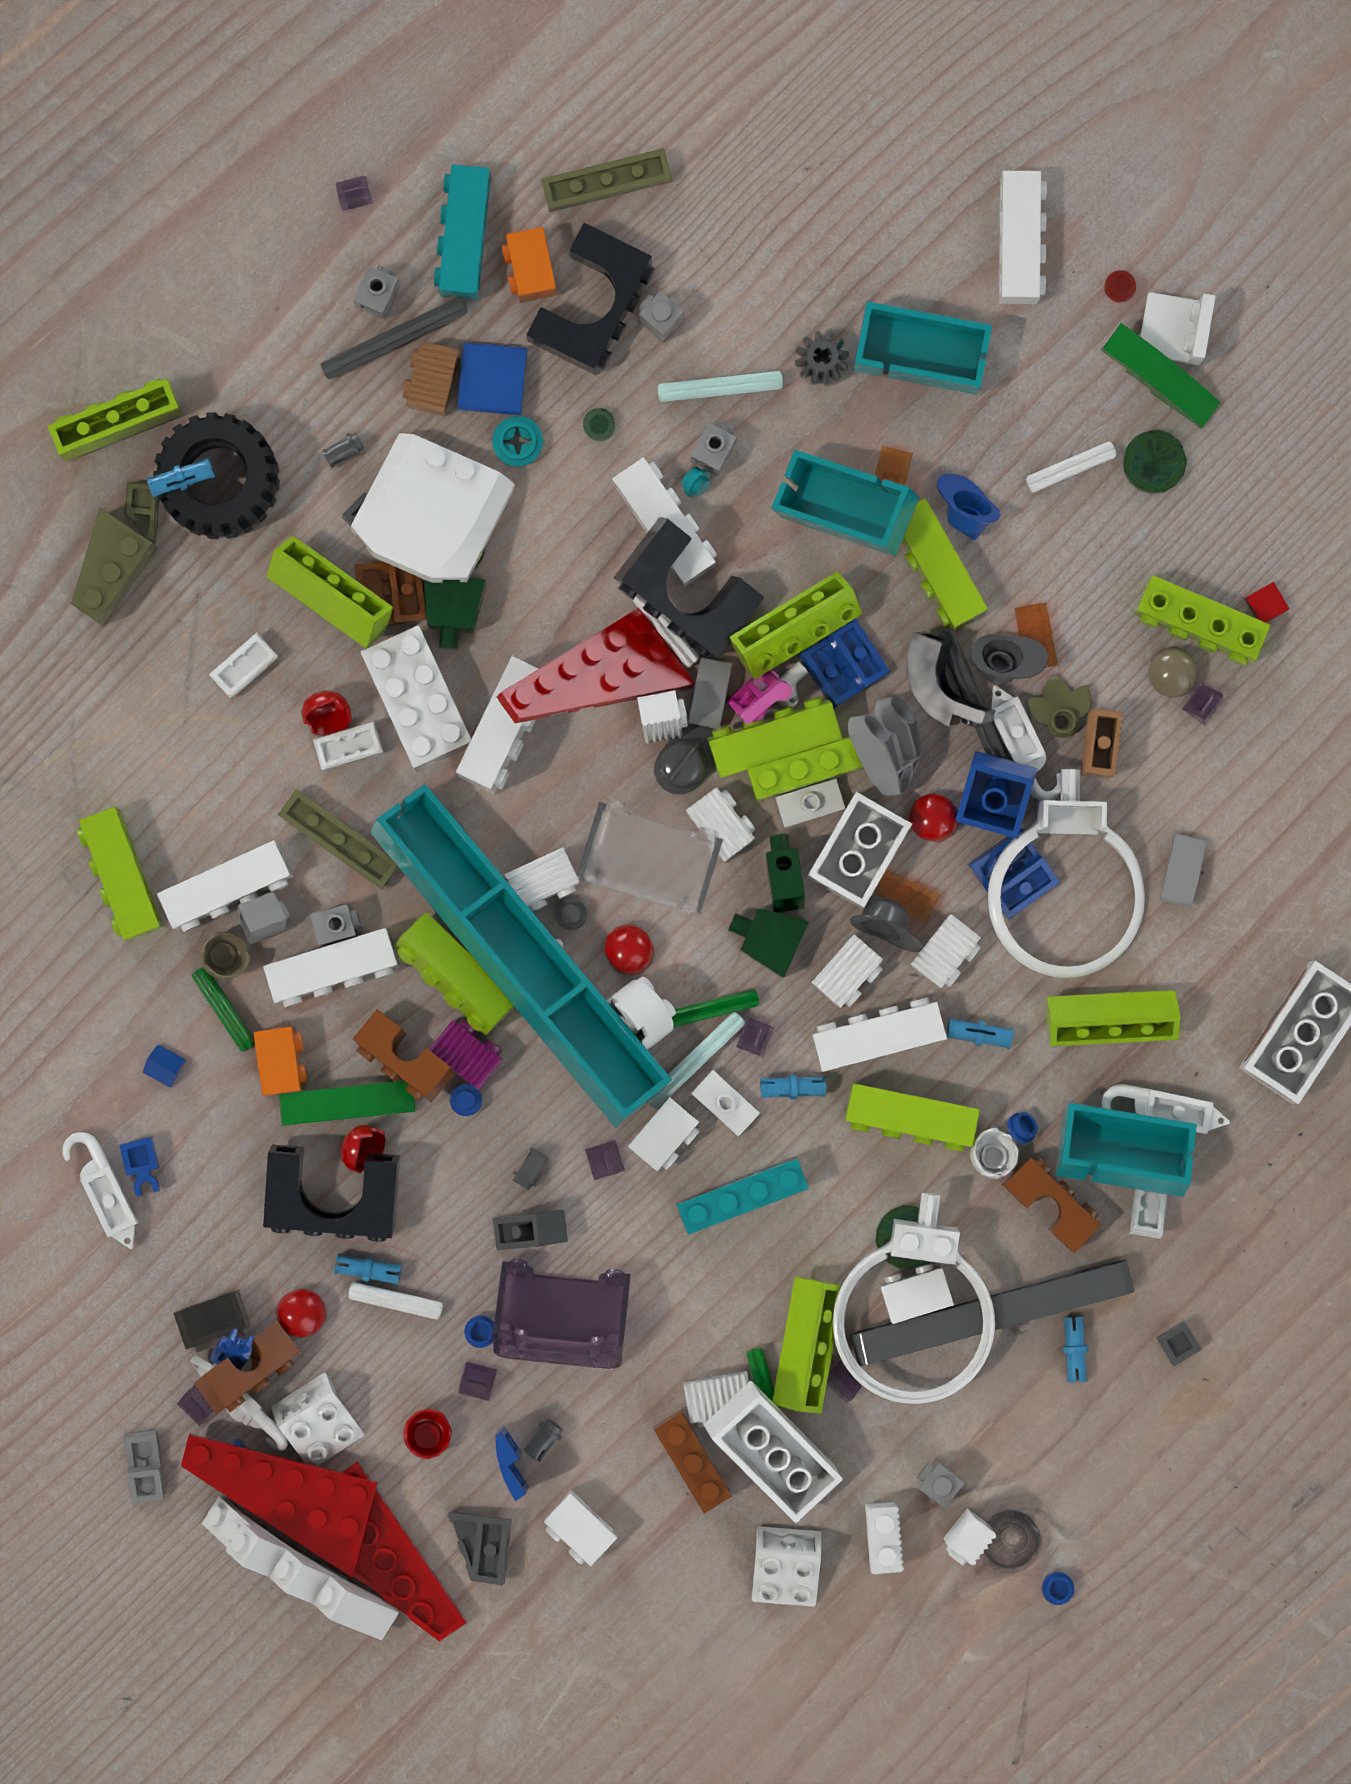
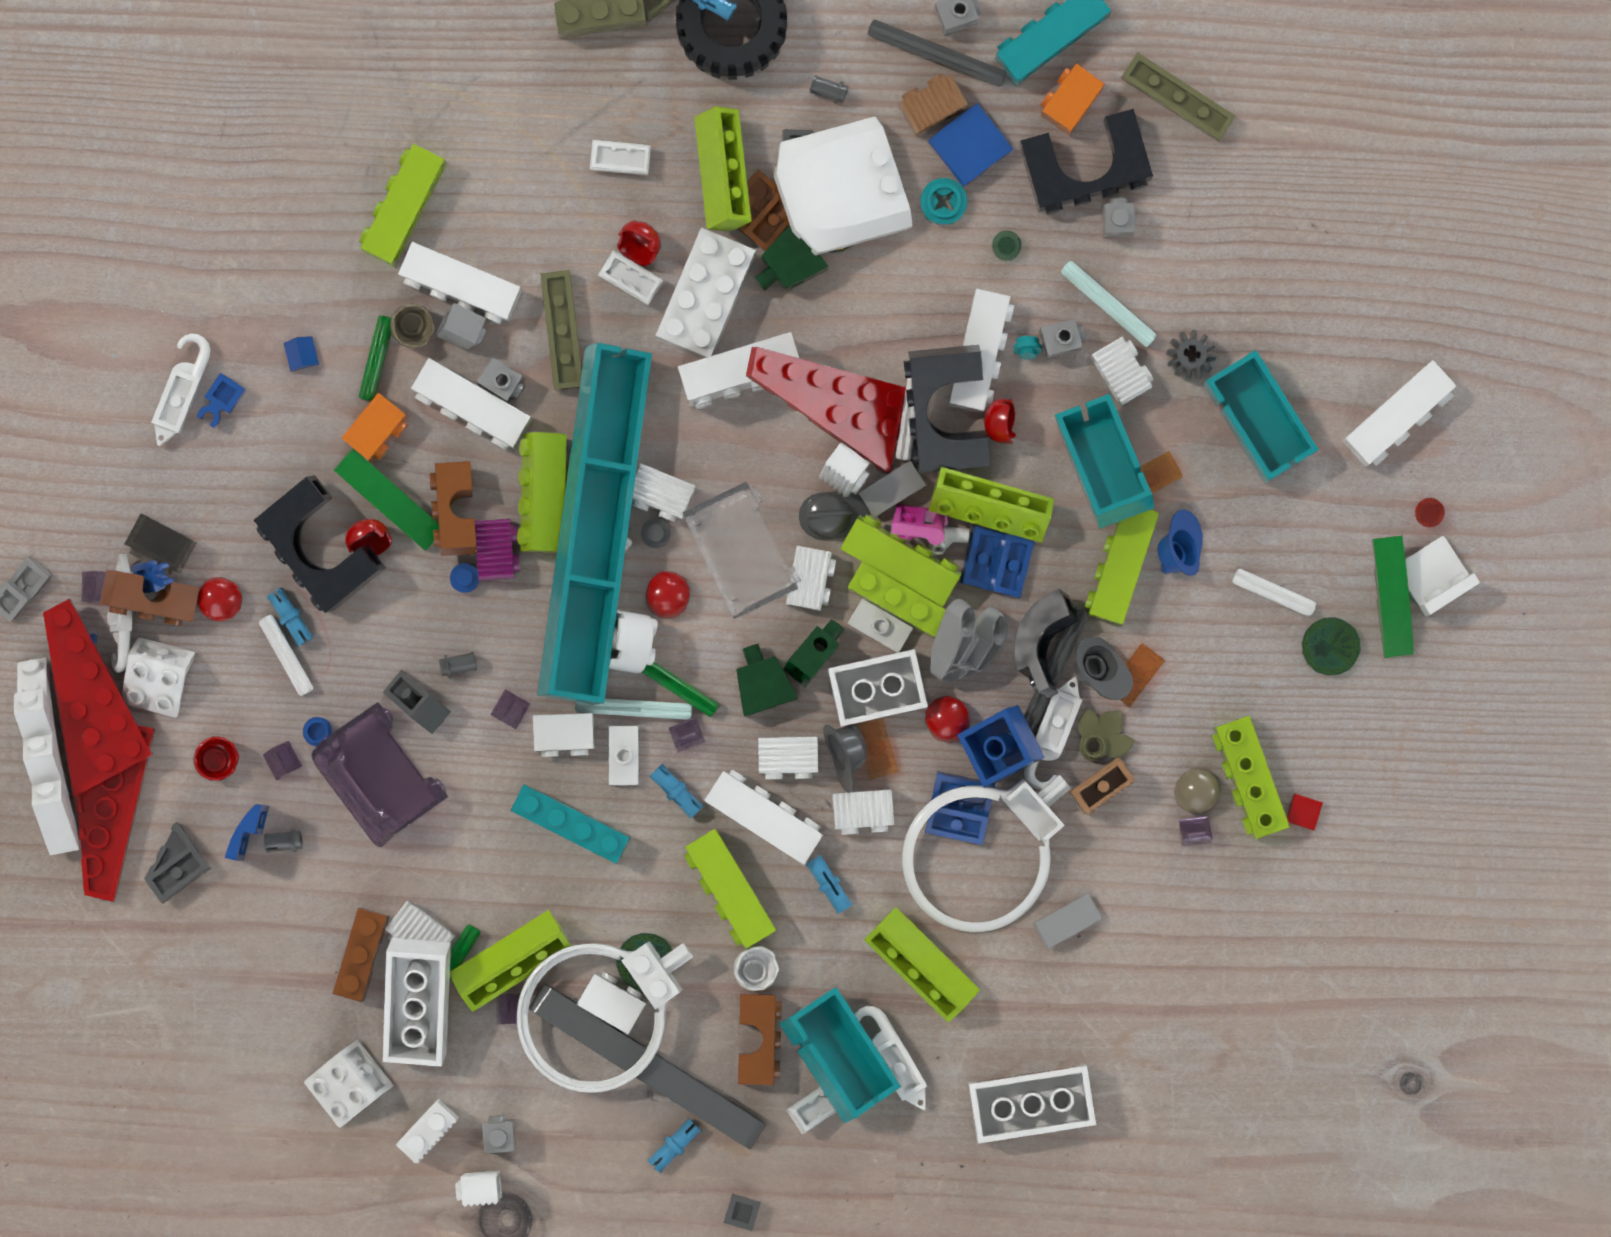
camera: 45 degrees right, 0 degrees up
(579, 1529) = (245, 920): white brick -> none
(734, 557) = (1000, 420): none -> red hair
(784, 424) = (1122, 371): none -> white brick
(1022, 1127) = (791, 971): blue plate -> none

